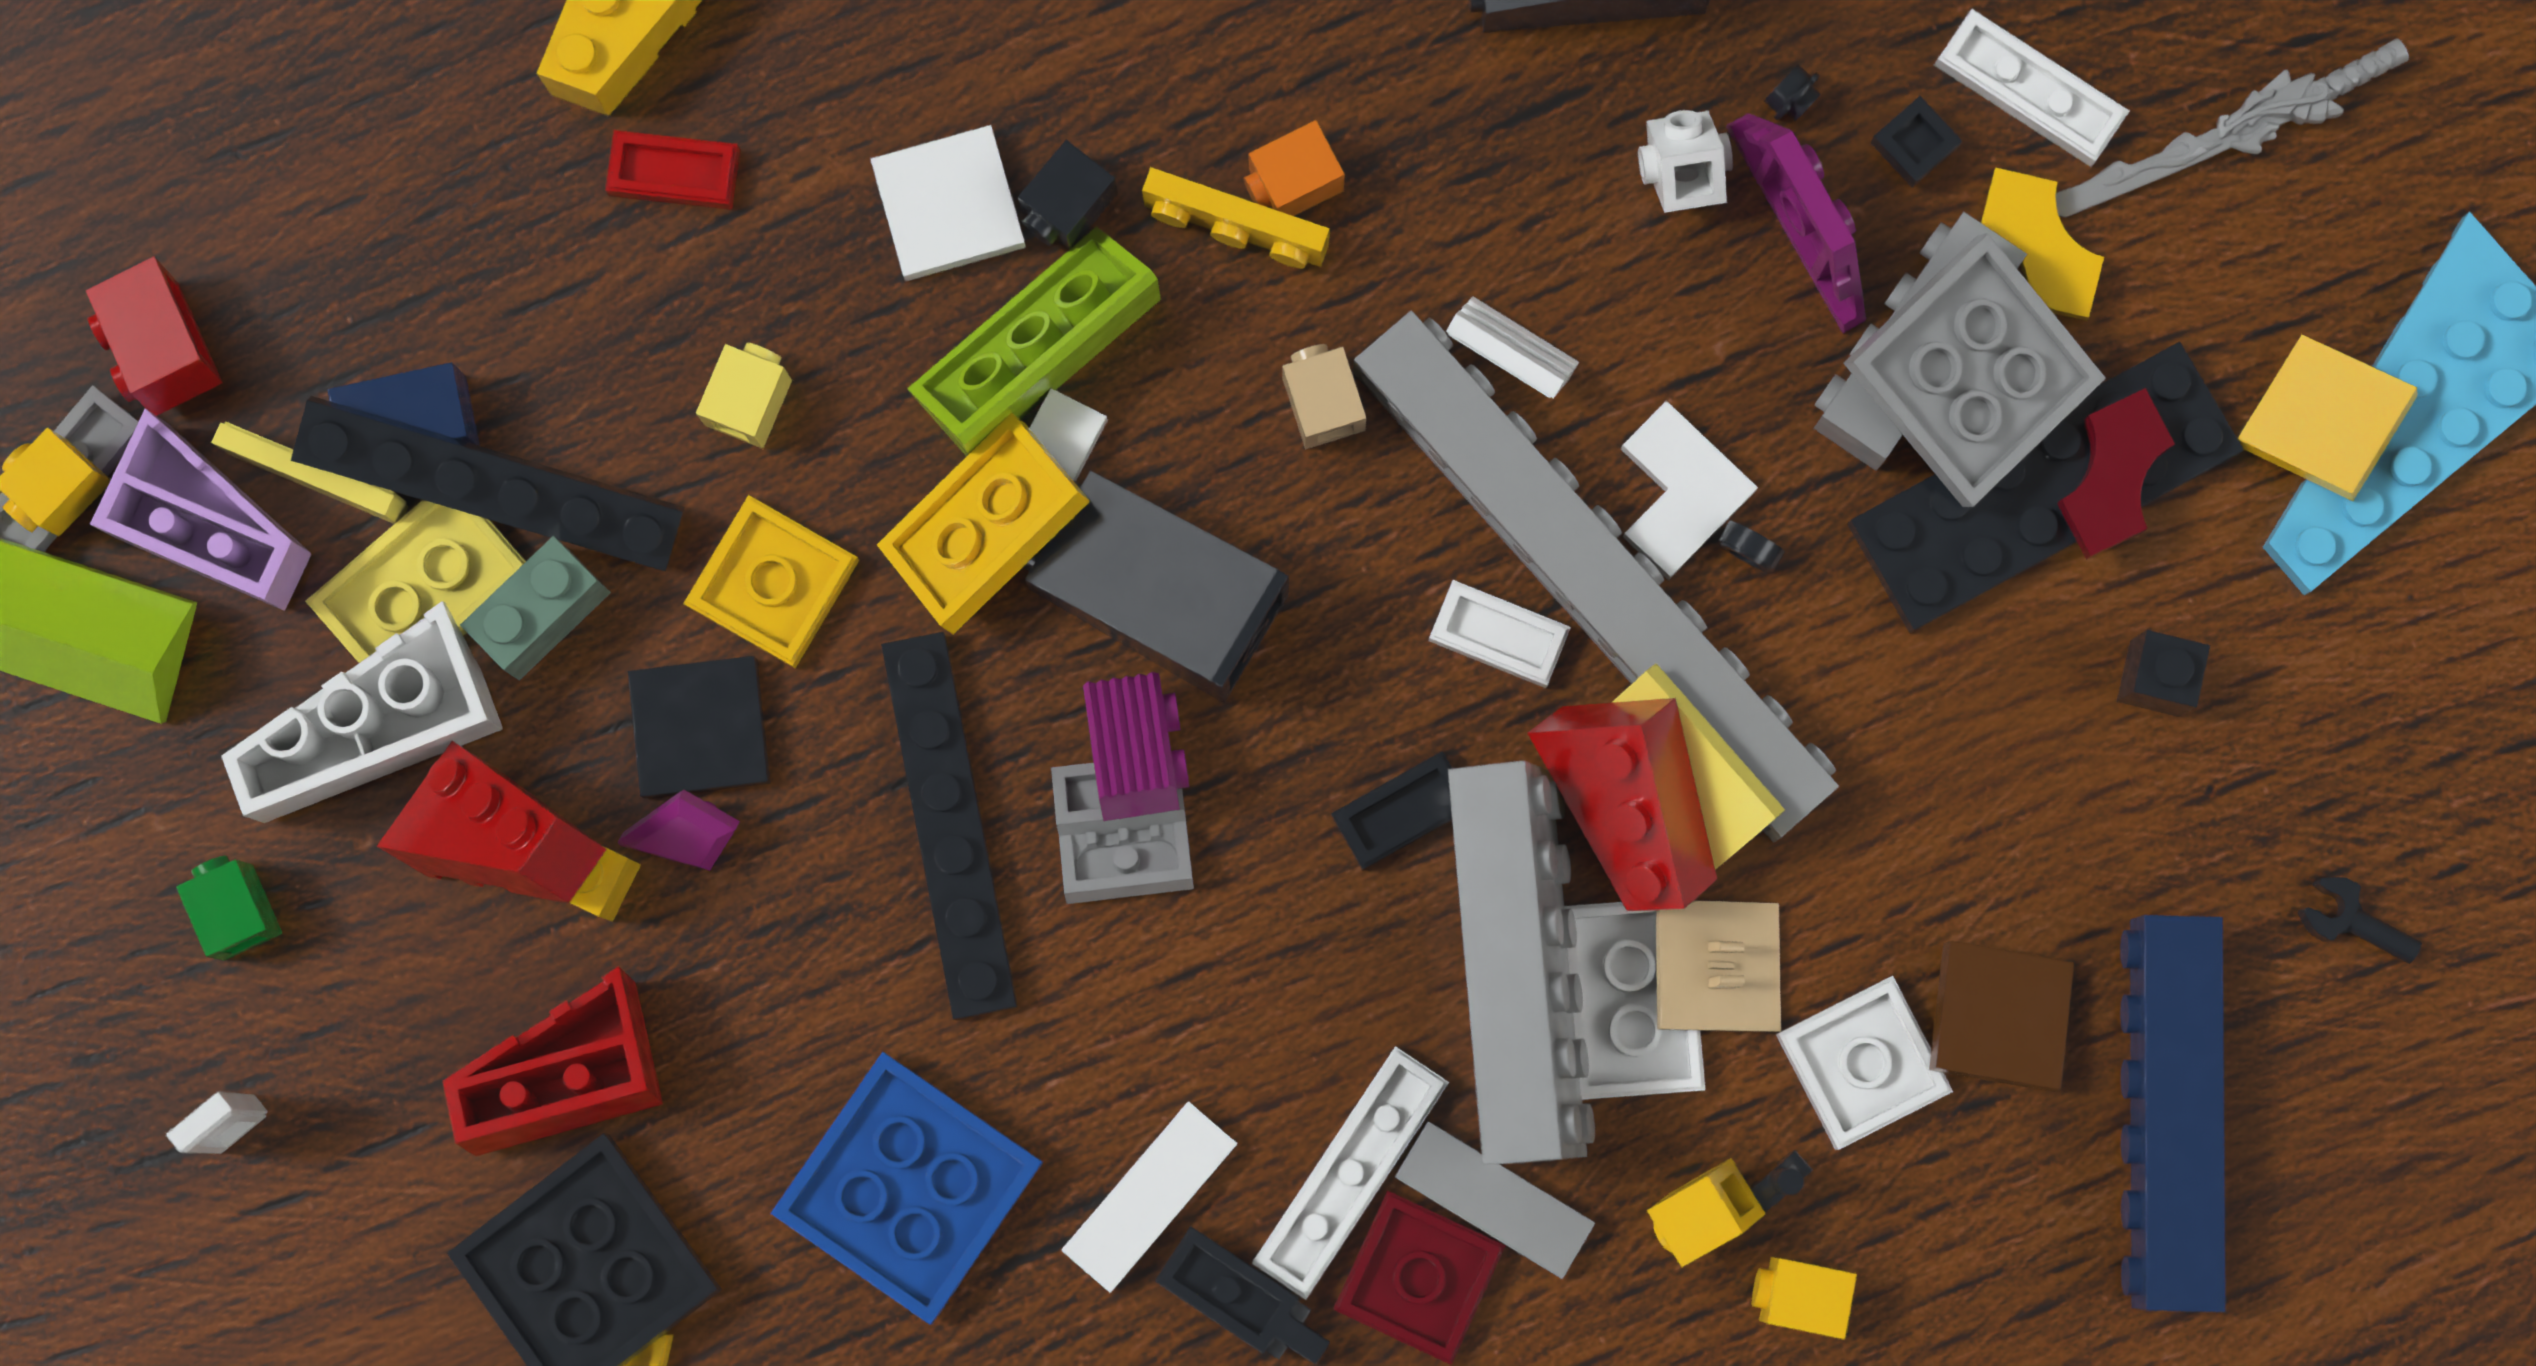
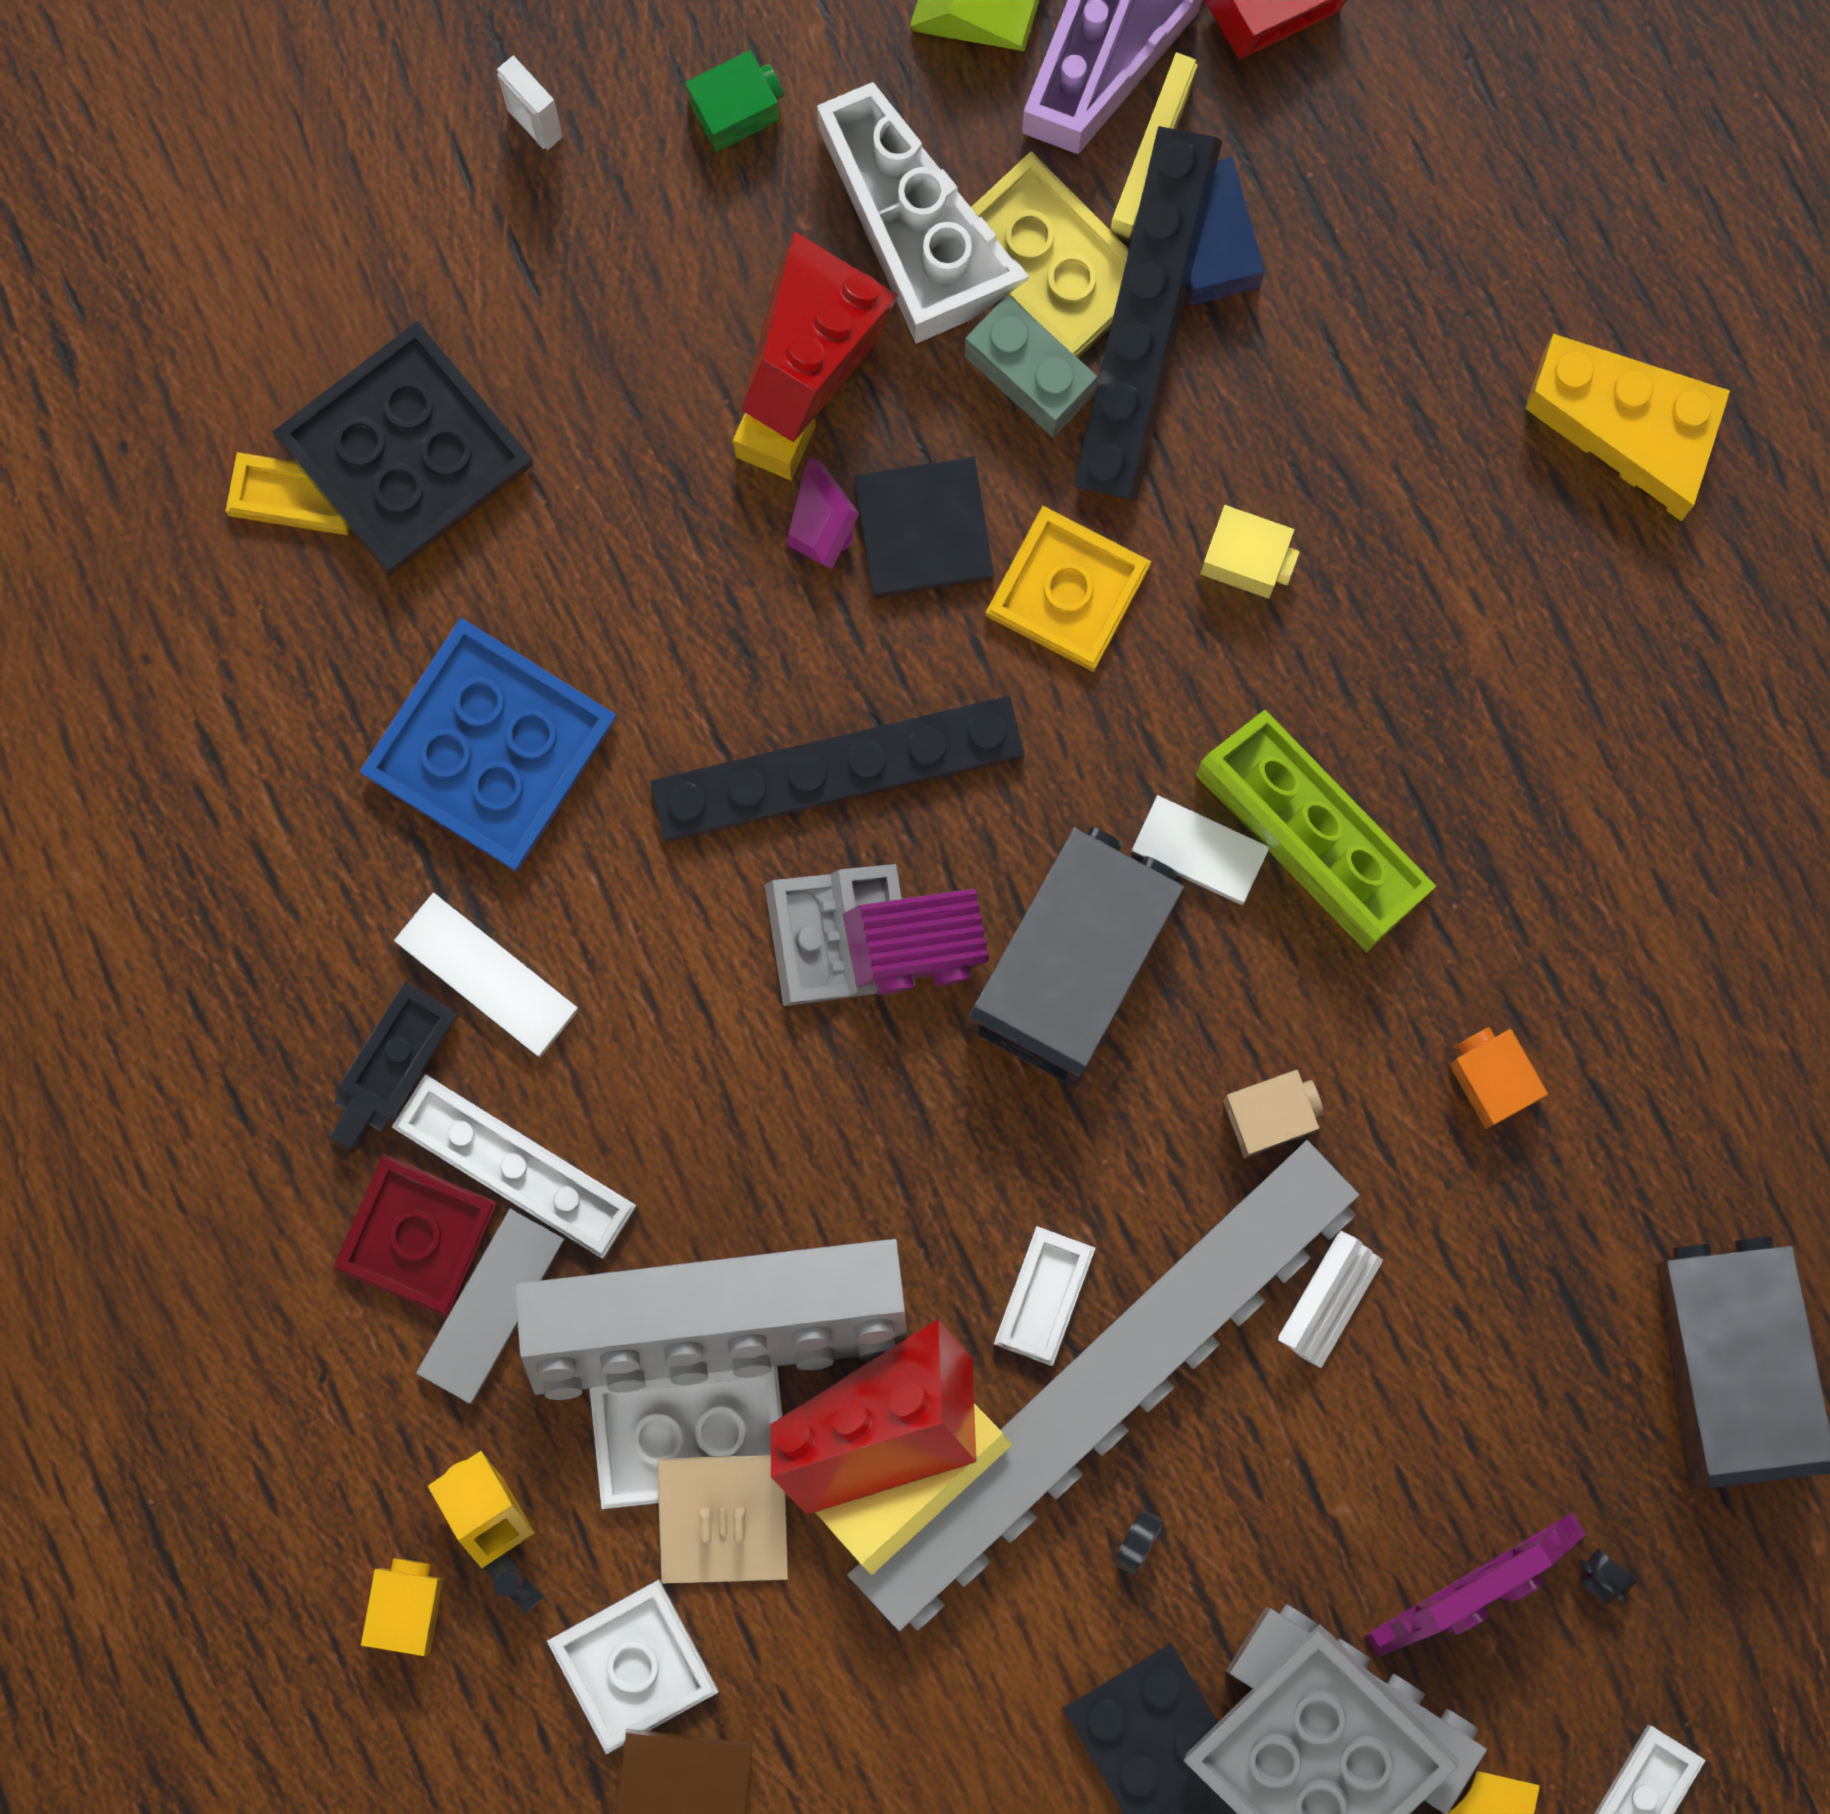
camera: 85 degrees right, 0 degrees up
(560, 1075) = (585, 414): red wedge -> none
(672, 169) = (1472, 472): red tile -> none
(948, 203) = (1452, 740): white tile -> none
(982, 523) = (1128, 785): yellow plate -> none
(1066, 197) = (1461, 853): black brick -> none
(1235, 219) = (1445, 1020): yellow plate -> none
(1397, 812) = (864, 1198): black tile -> none
(1686, 160) = (1527, 1467): white brick -> none
(1698, 487) = (1201, 1490): white tile -> none
(1916, 141) = (1562, 1704): black plate -> none

